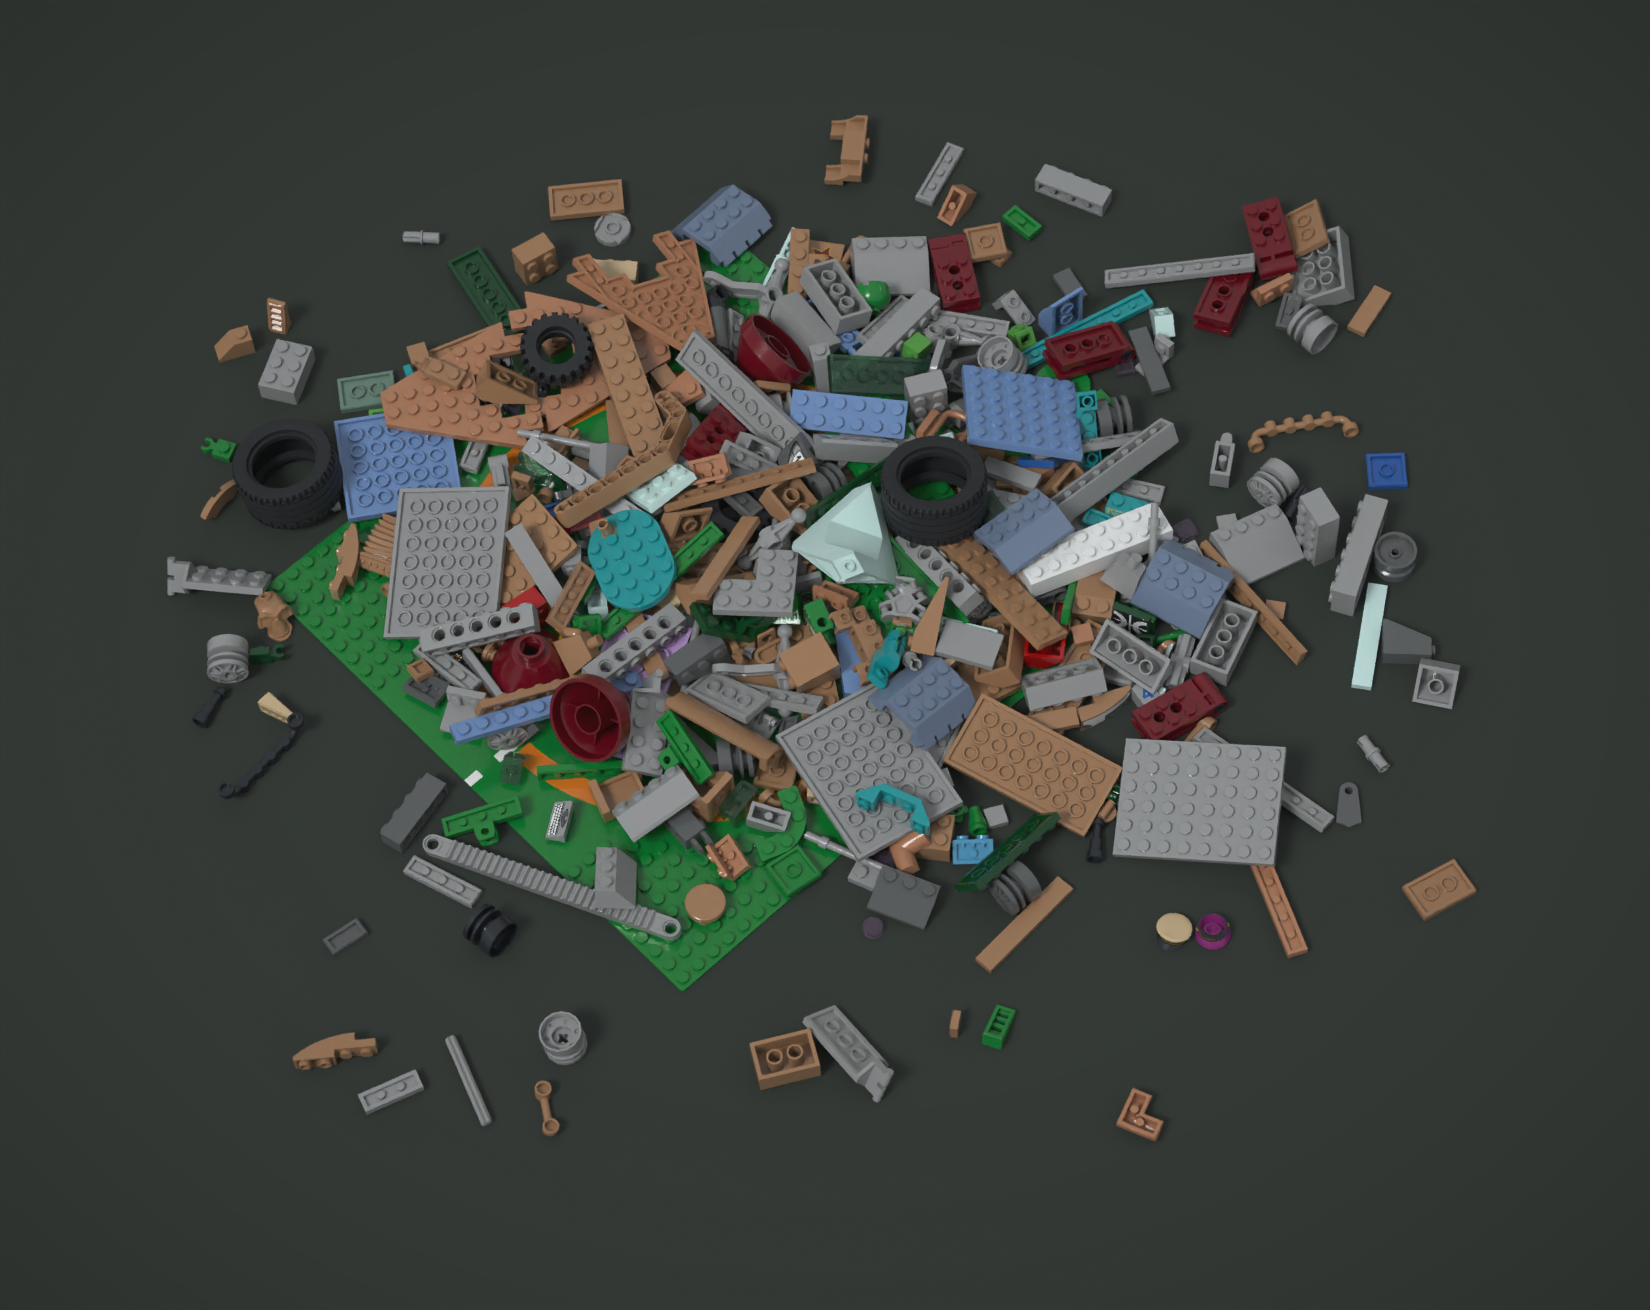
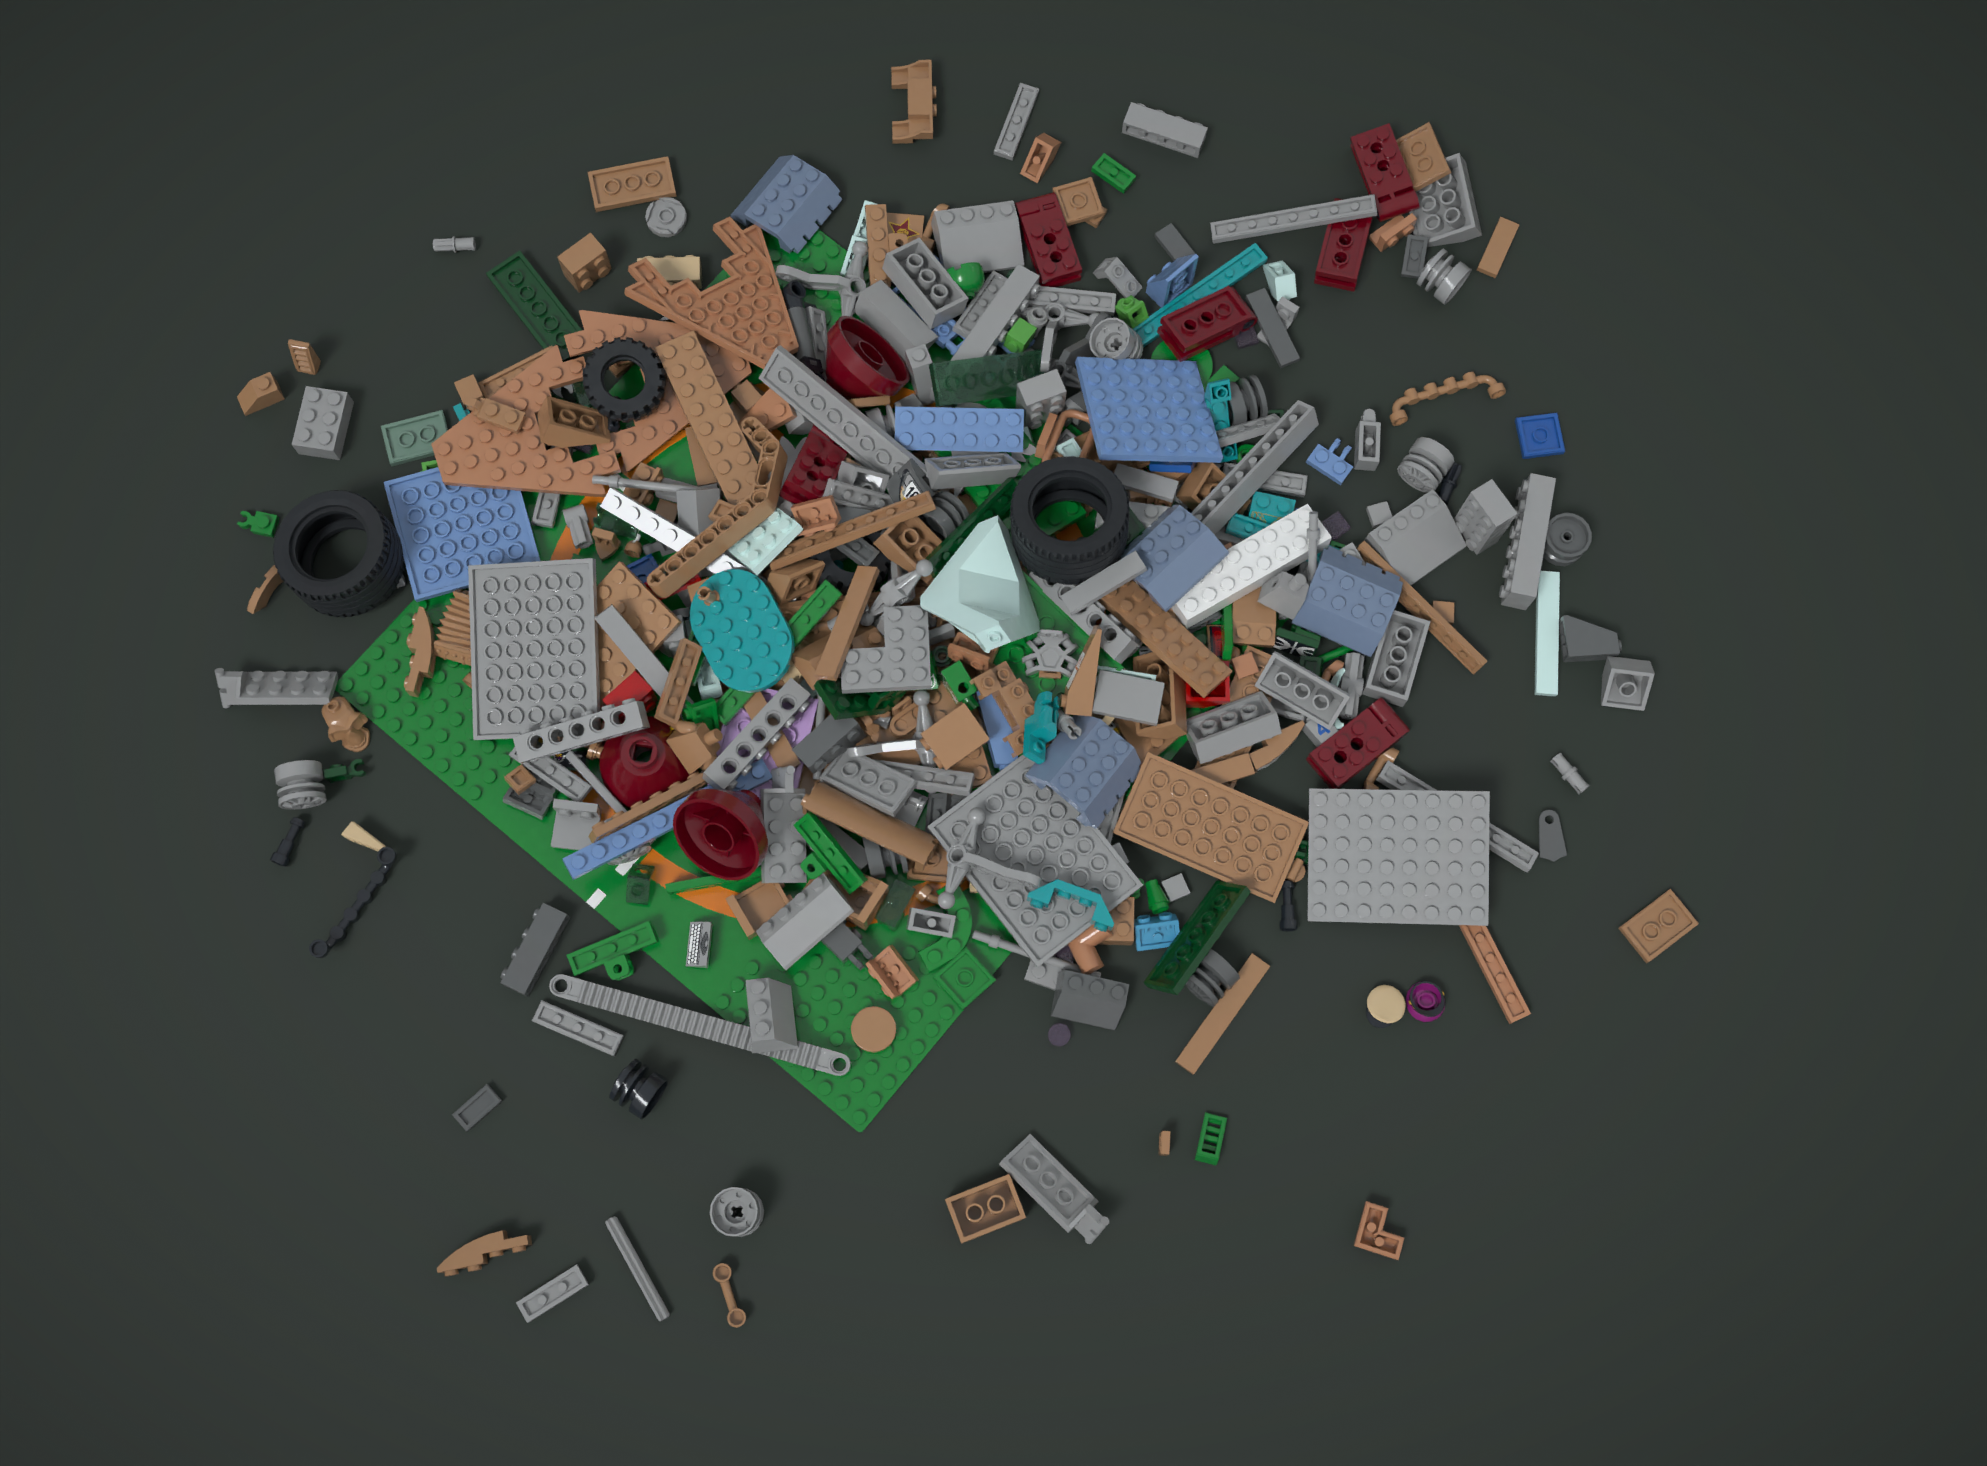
camera: 15 degrees left, 15 degrees up
(804, 760) = (966, 850): none -> light grey piece
(958, 544) = (1103, 583): none -> light grey tile
(1187, 478) = (1329, 463): none -> medium blue hinge

